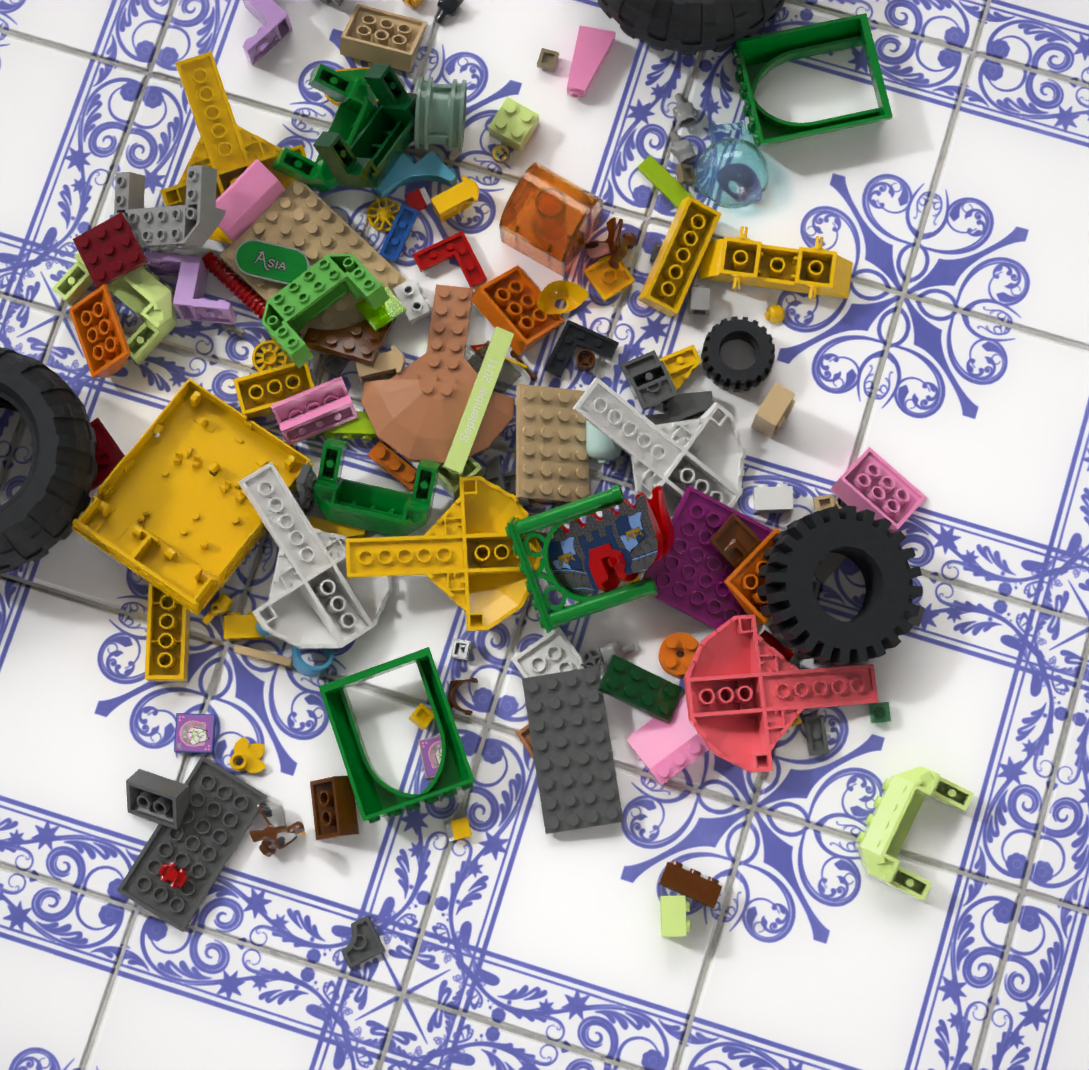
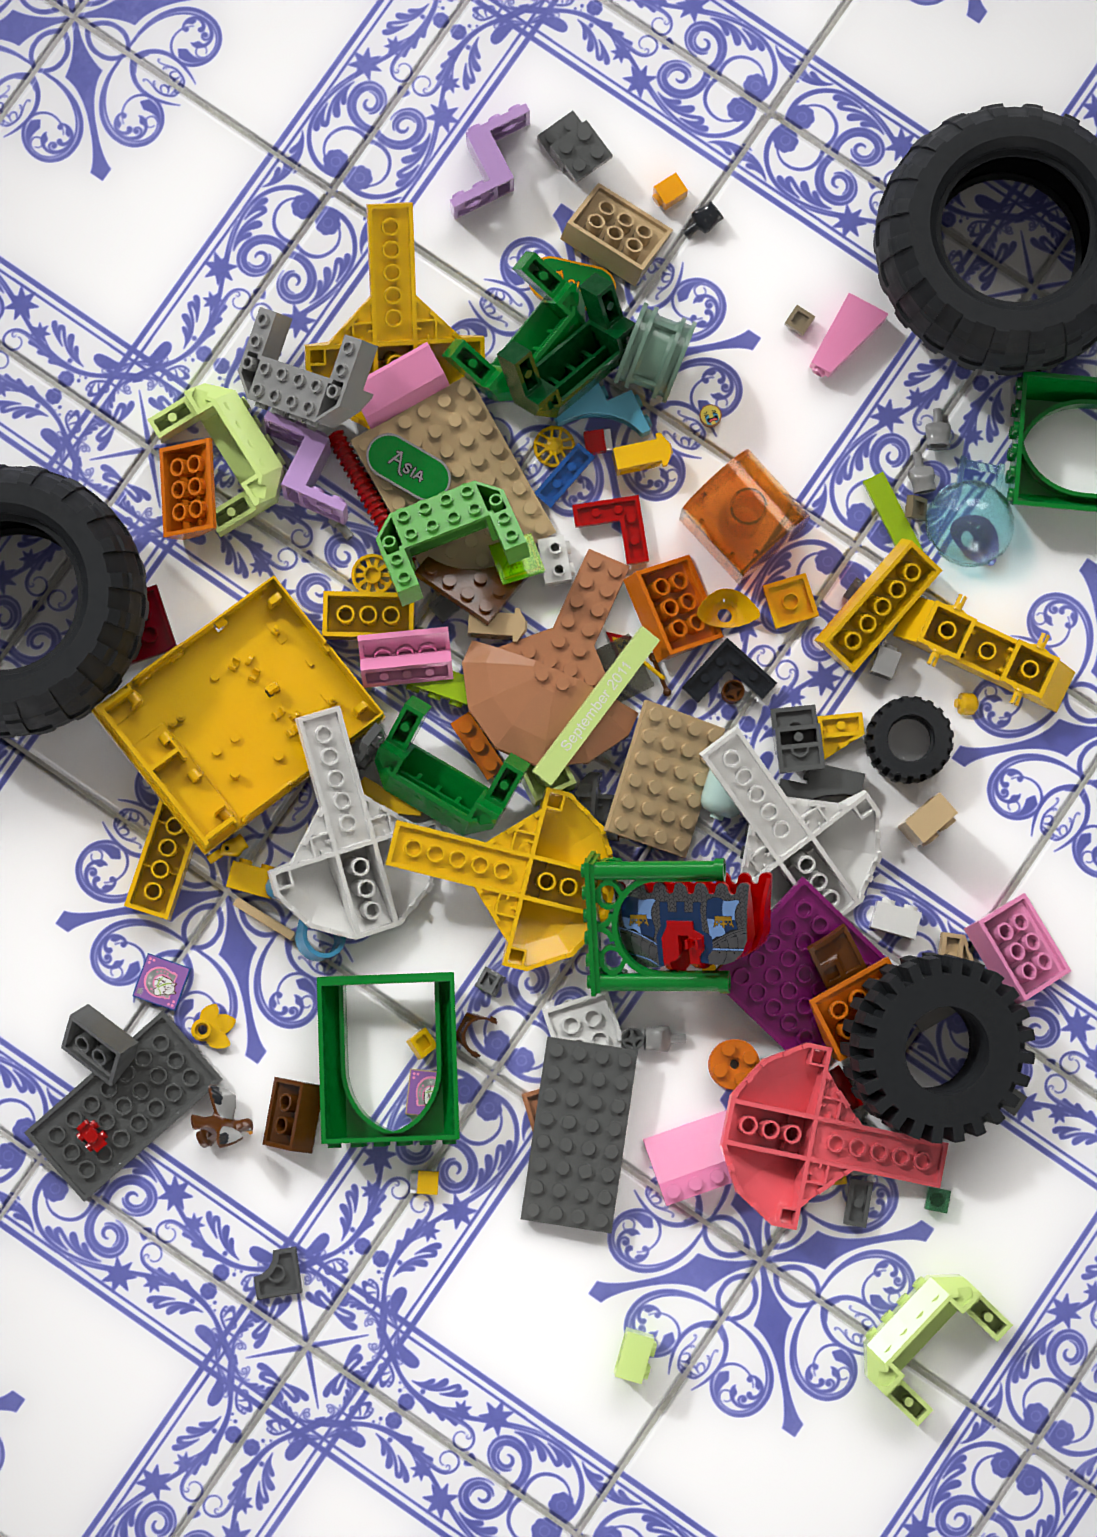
camera: 10 degrees right, 5 degrees up
(110, 250) = (227, 399): dark red plate -> none
(513, 124) = (736, 387): yellowish green brick -> none
(614, 245) = (807, 568): reddish brown animal -> none
(639, 688) = (676, 1089): dark green plate -> none
(690, 884) = (664, 1325): reddish brown slope -> none

